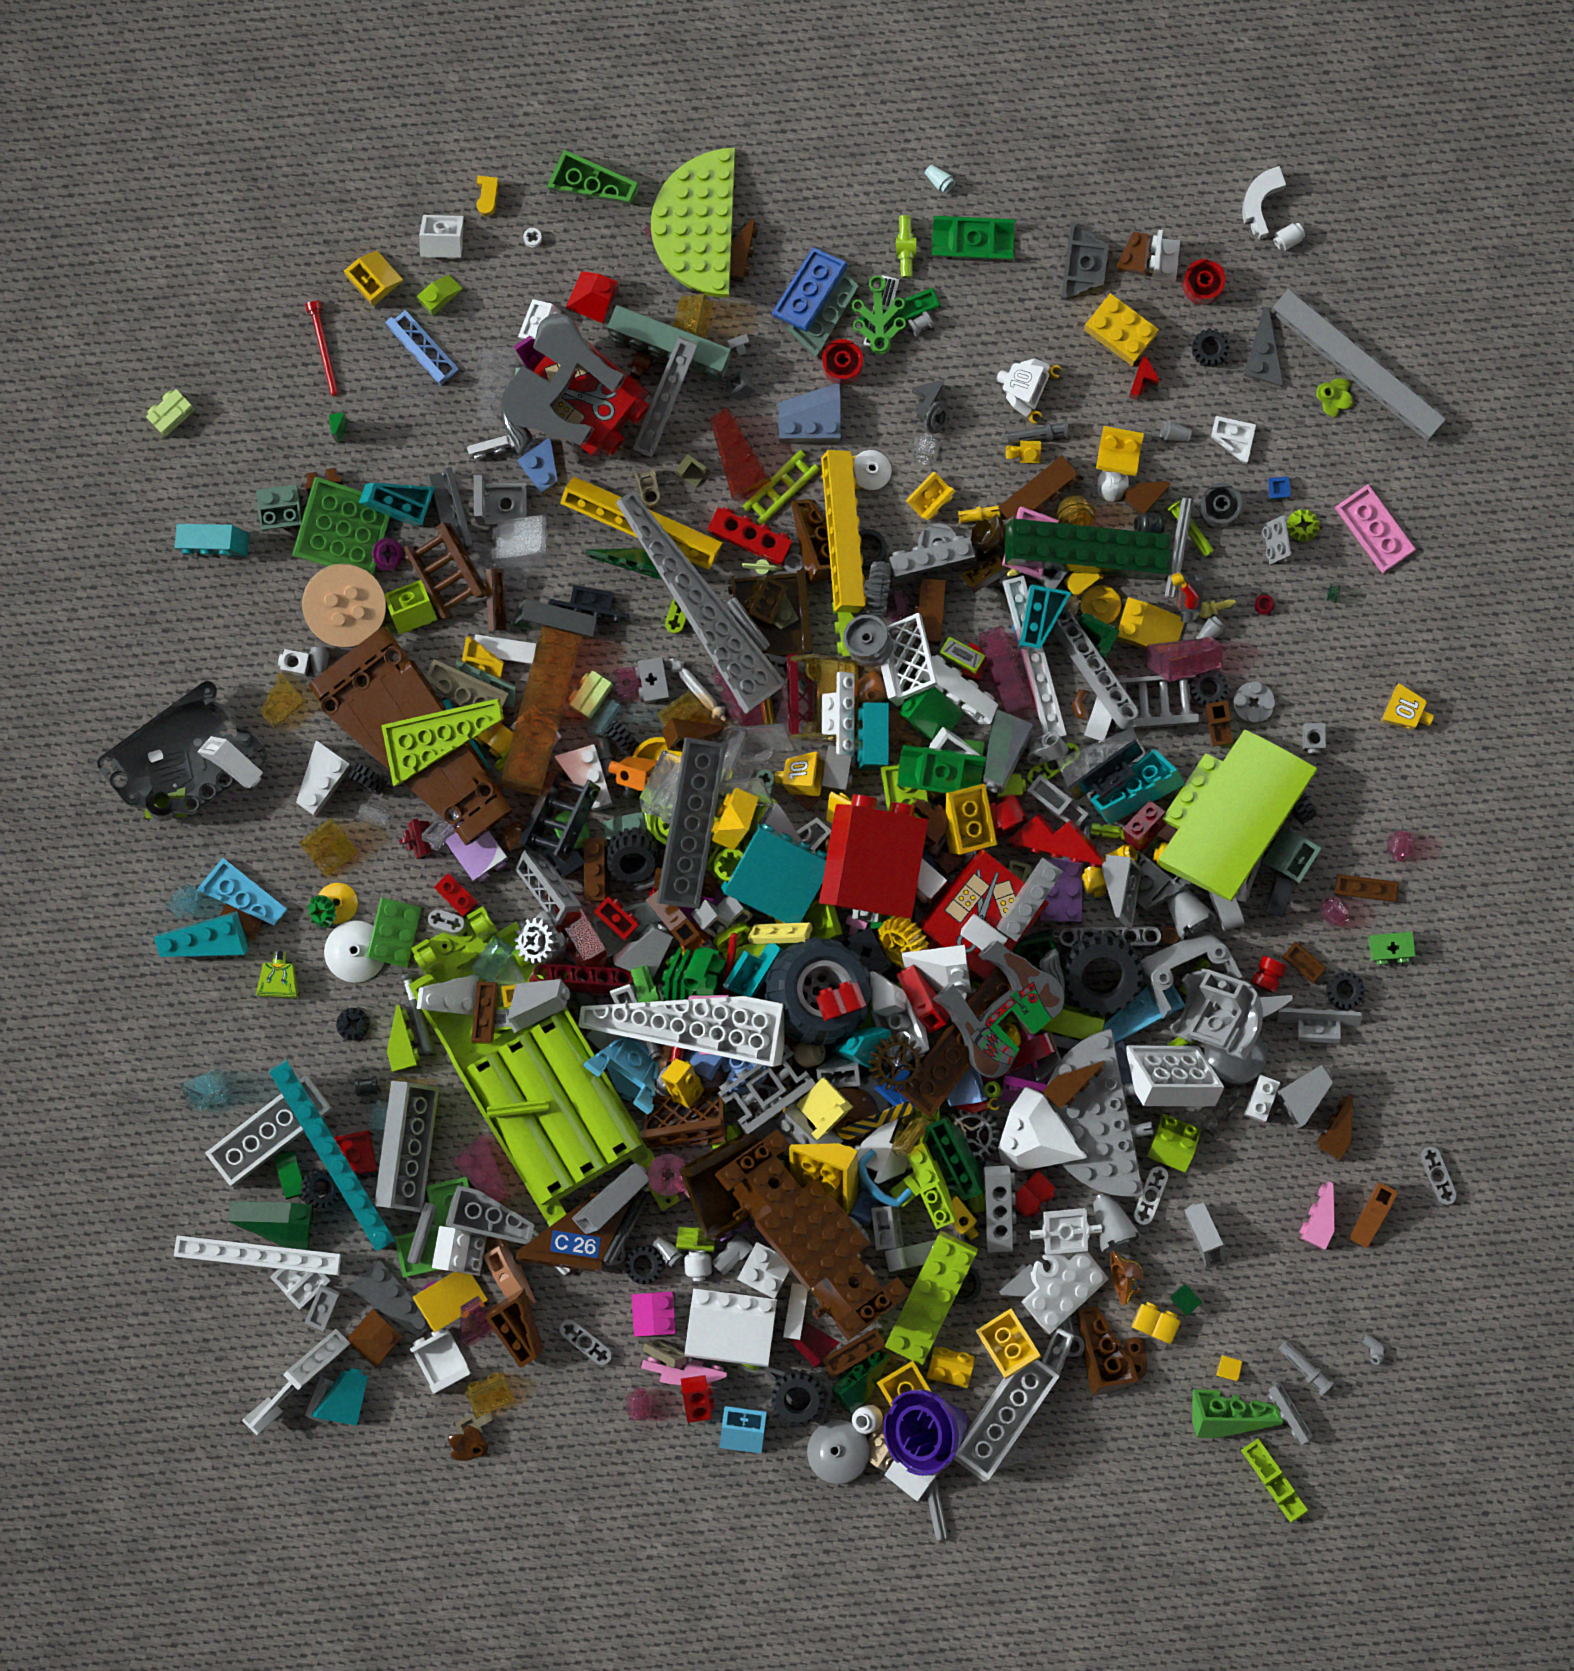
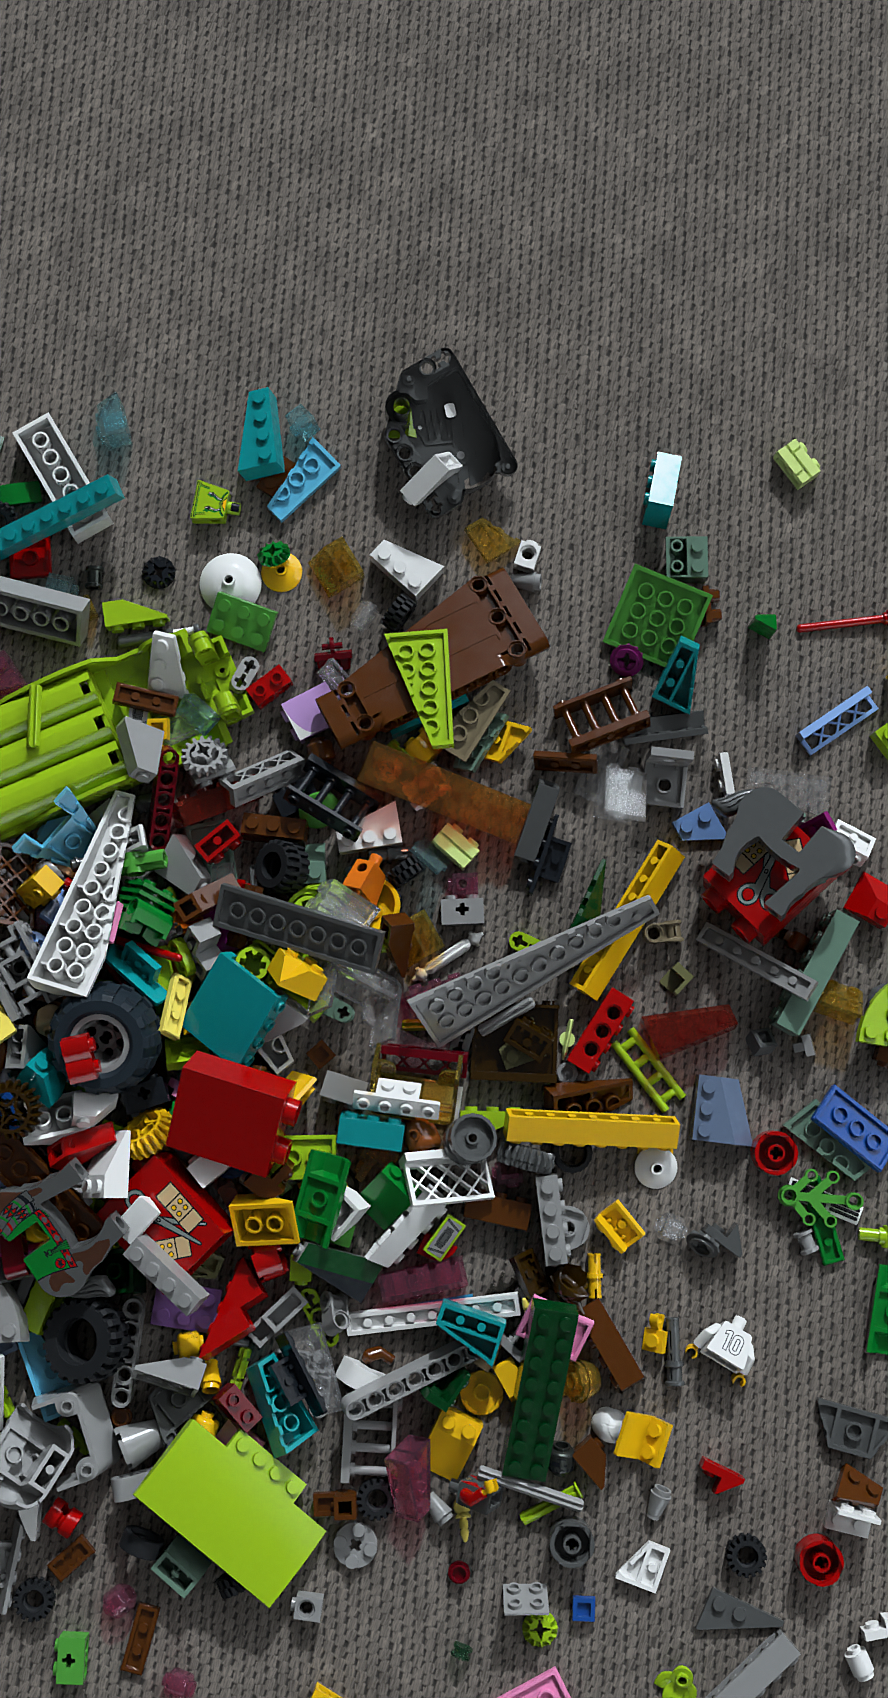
camera: 95 degrees right, 0 degrees up
(343, 605) = (578, 609): light nougat brick -> none
(410, 607) = (569, 676): lime slope -> none
(509, 649) = (514, 769): white tile -> none
(802, 774) = (342, 1052): yellow torso -> none
(1121, 329) = (776, 1459): yellow brick -> none

